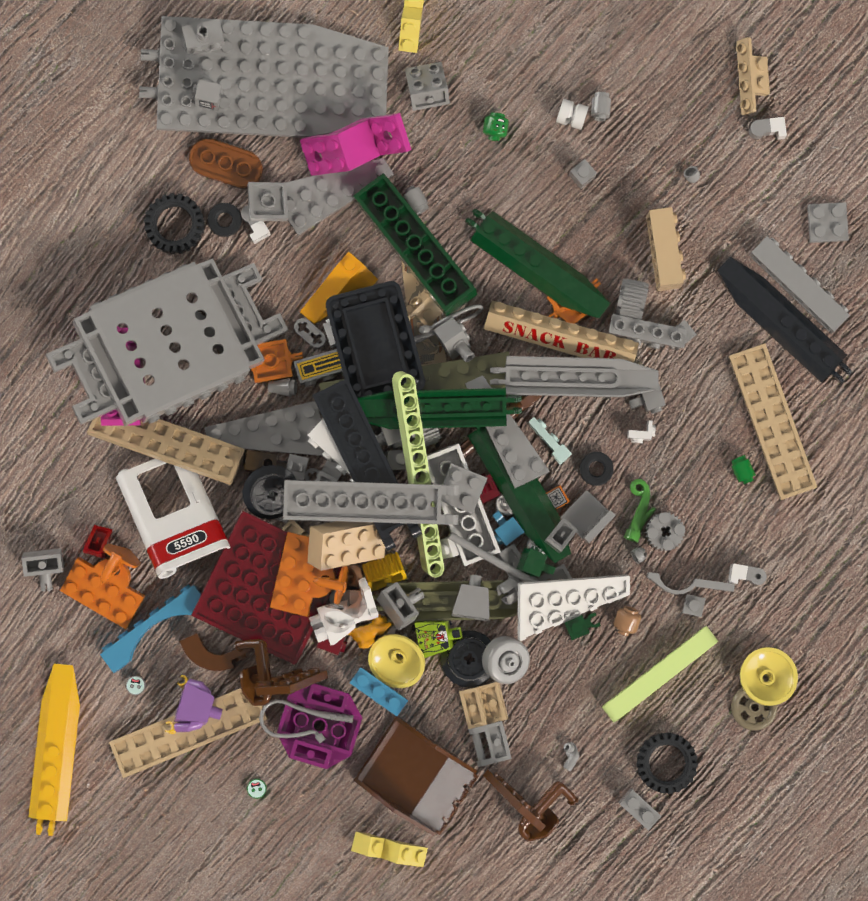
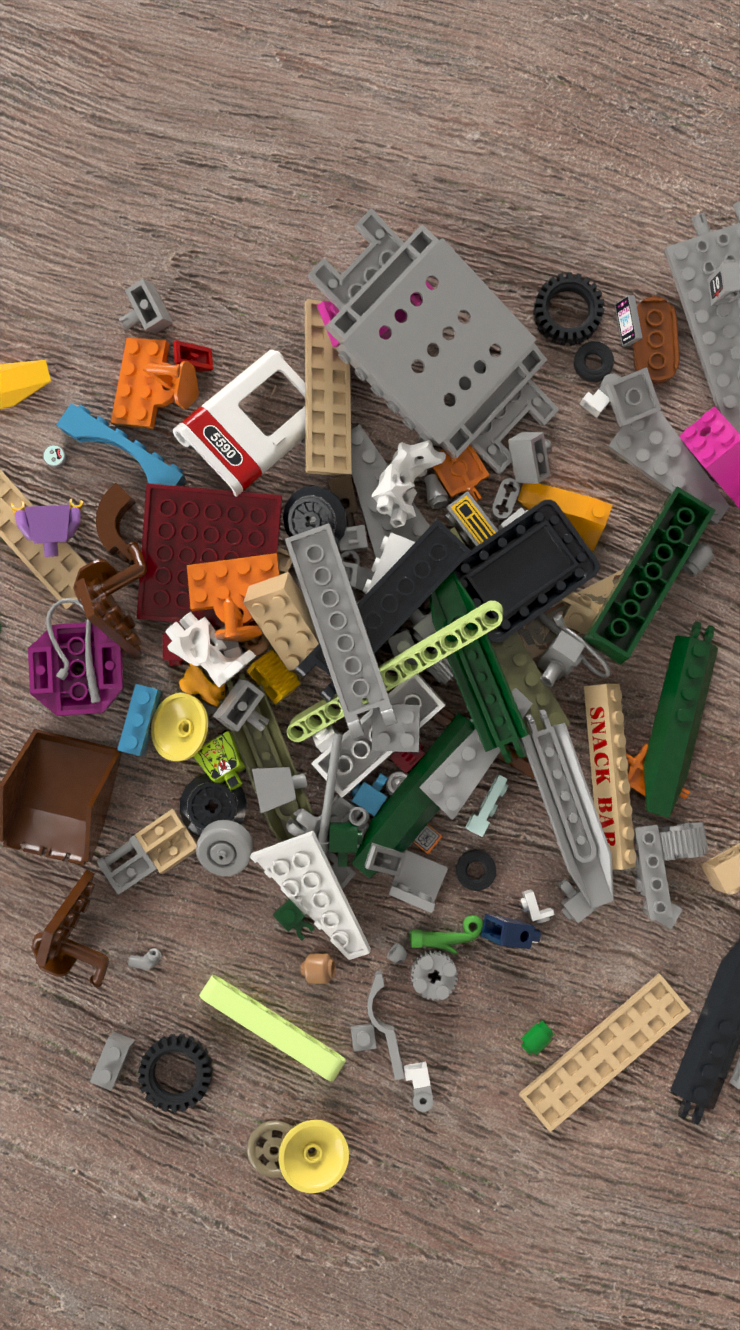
camera: 70 degrees right, 0 degrees up
(202, 179) = (628, 321): none -> tile
(275, 422) = (397, 497): none -> white hips
(285, 301) = (530, 457): none -> light grey brick
(517, 546) = (355, 813): none -> light grey hinge
(653, 460) = (509, 932): none -> dark blue torso

